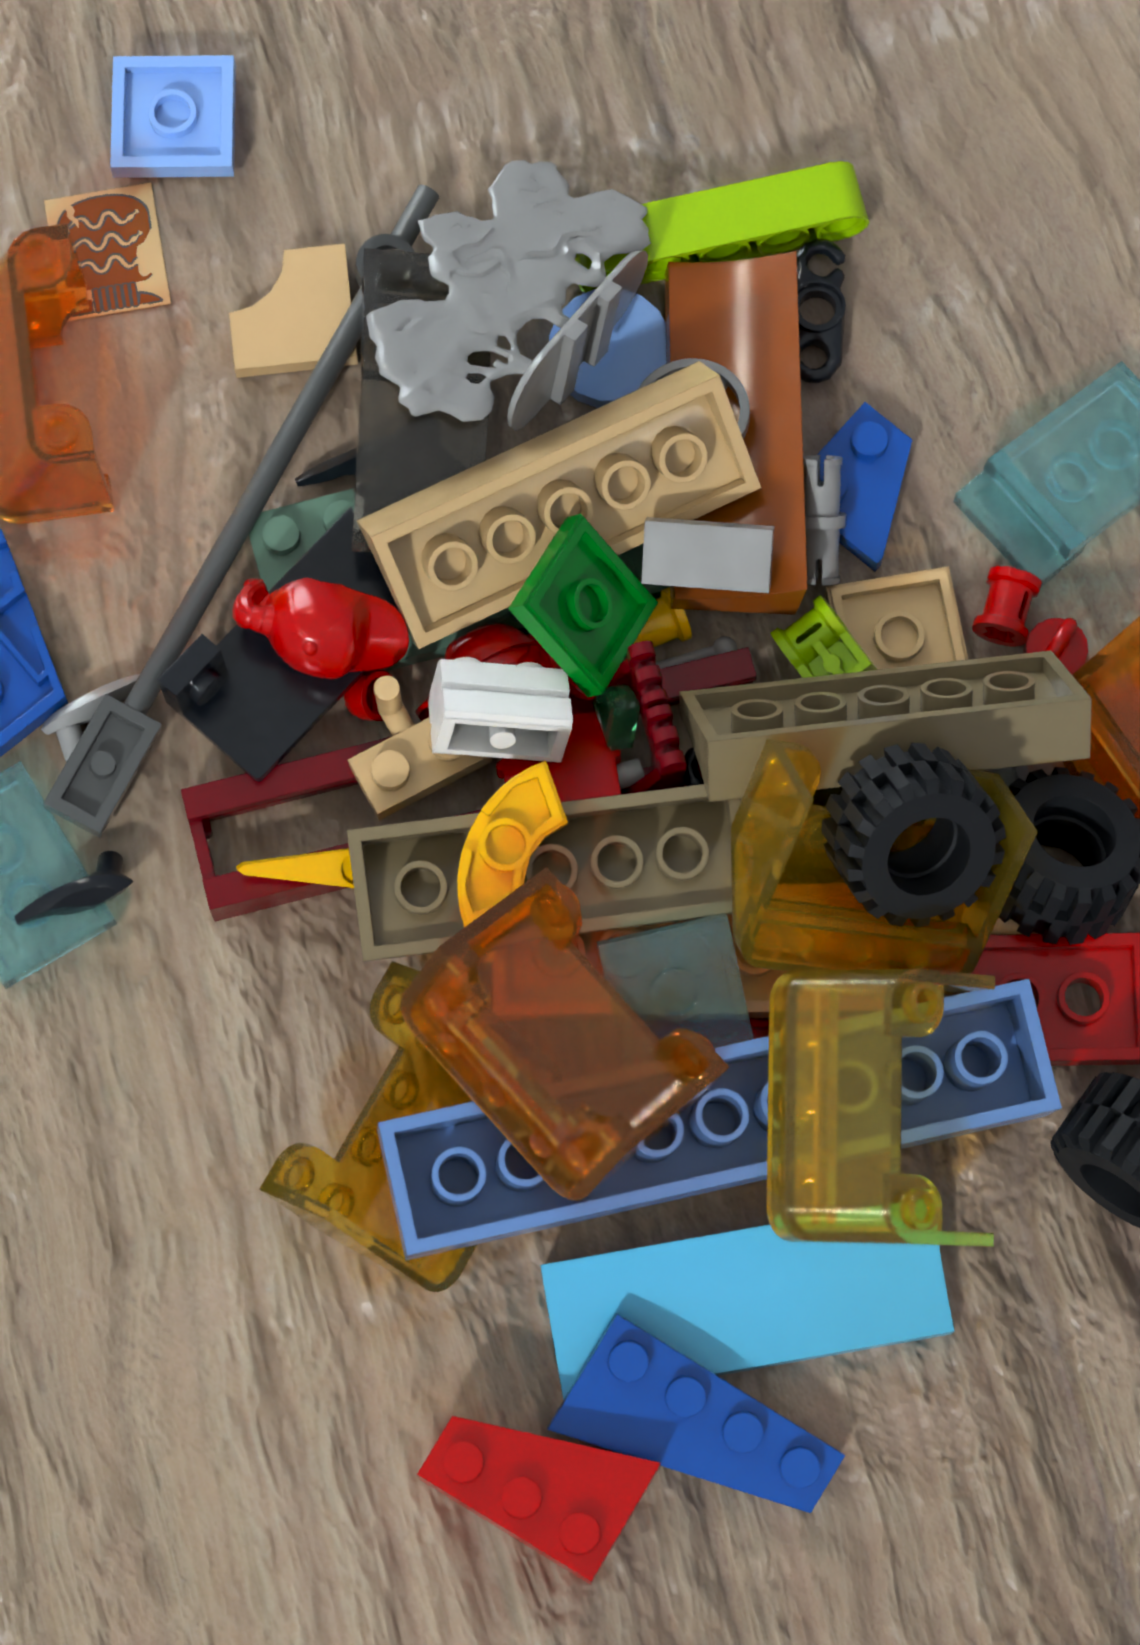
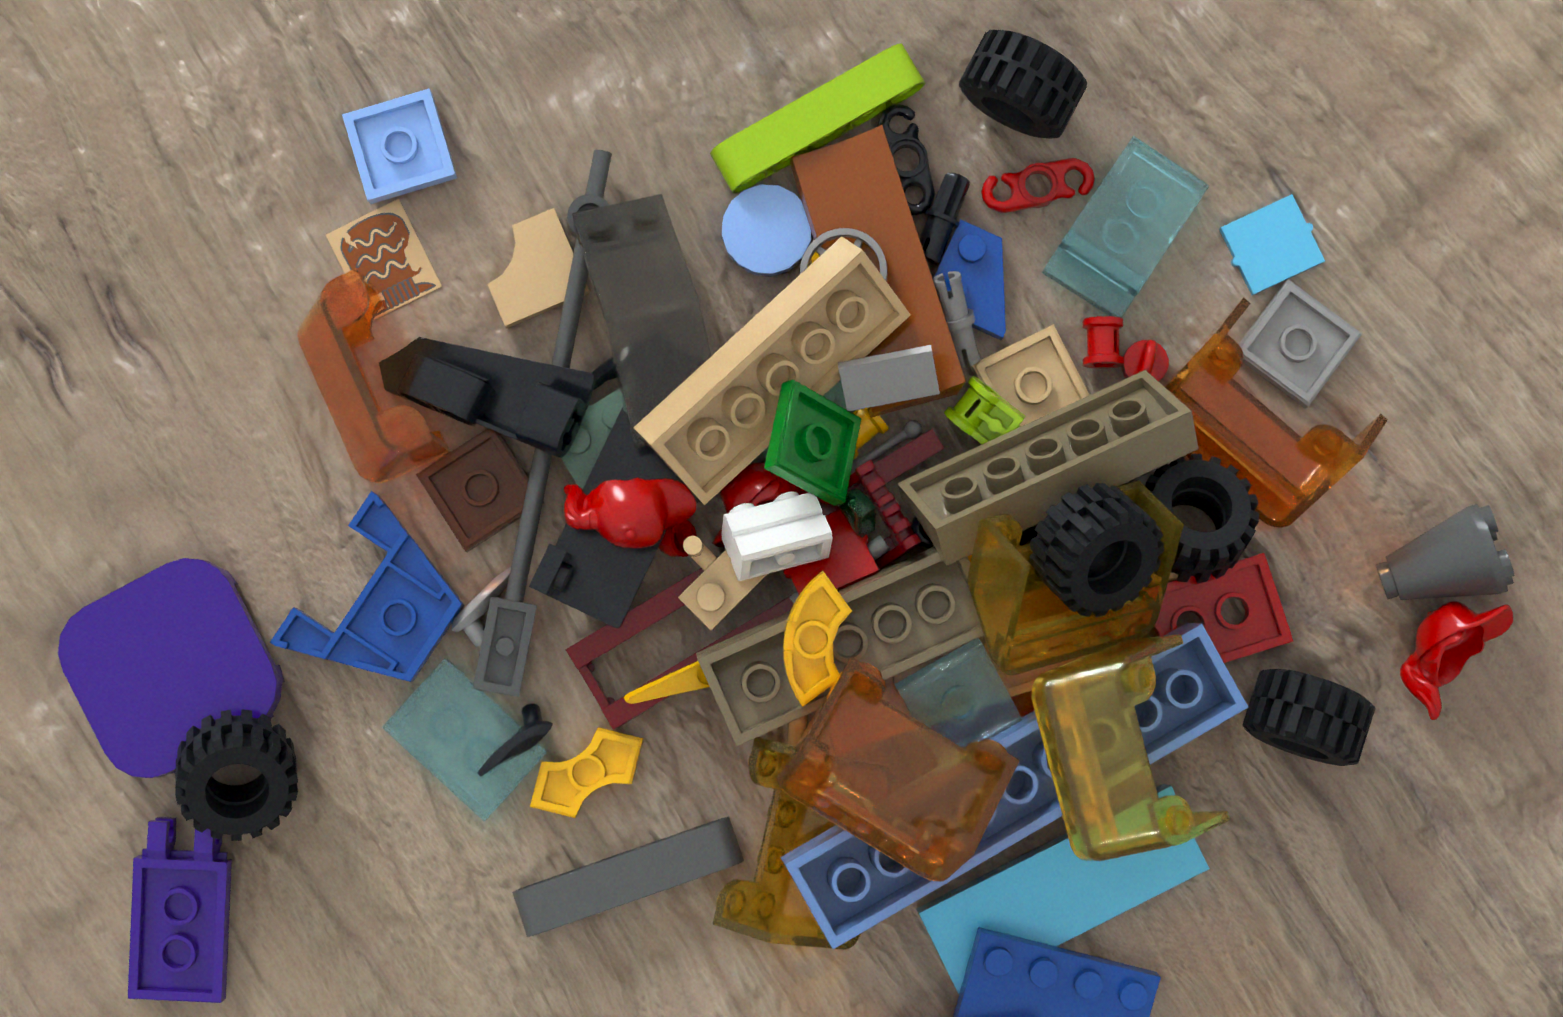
camera: 15 degrees left, 10 degrees up
(129, 970) = (606, 760): none -> yellow tile
(133, 562) = (477, 488): none -> reddish brown tile
(168, 1110) = (628, 876): none -> dark grey beam
(205, 446) = (501, 392): none -> black panel
(502, 278) = (681, 212): light grey plant -> none
(842, 393) = (943, 216): none -> black axle
(992, 248) = (1023, 84): none -> black tyre
(1005, 377) = (1053, 170): none -> red piece

